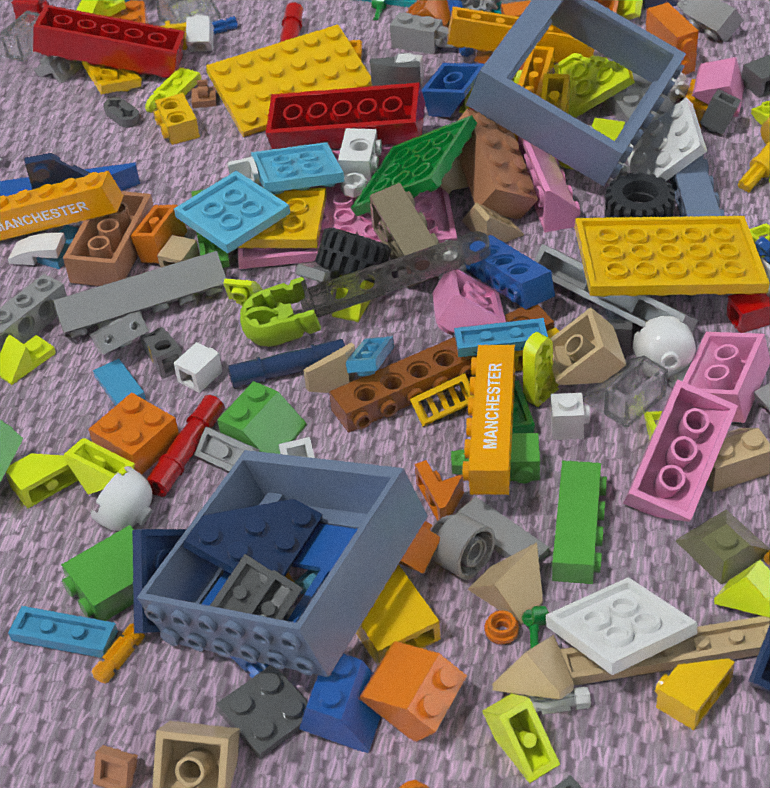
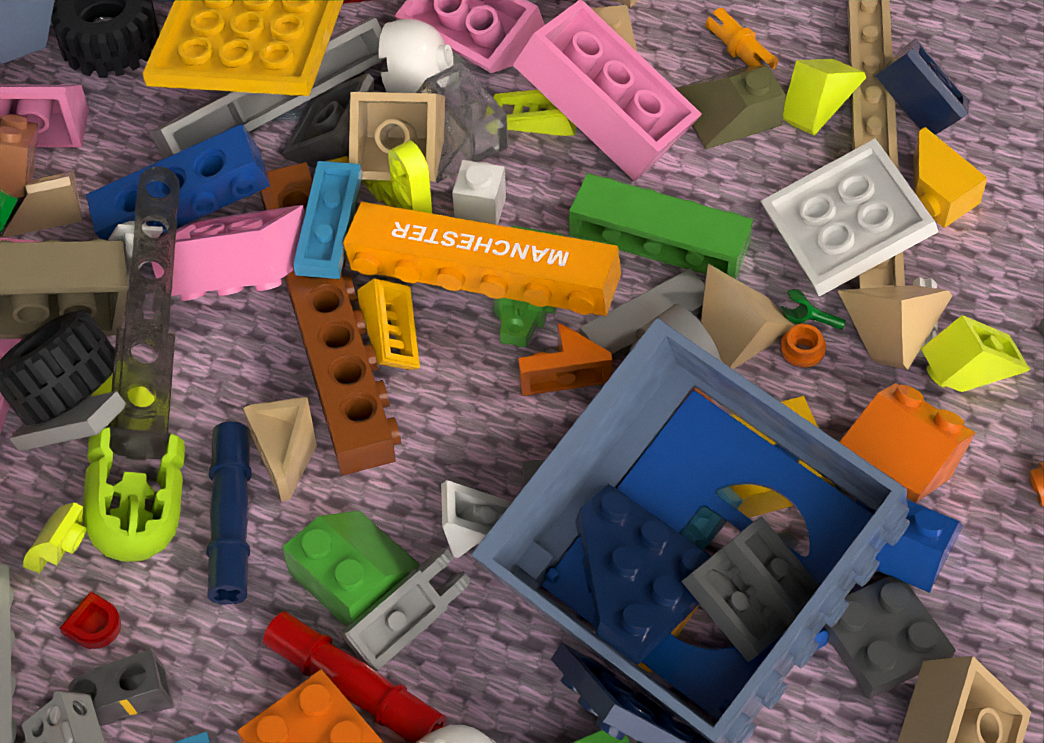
camera: 80 degrees left, 10 degrees up
(198, 367) = (188, 637): white brick -> none
(207, 331) = (93, 623): none -> red tile
(369, 355) = (279, 381): dark azure plate -> none

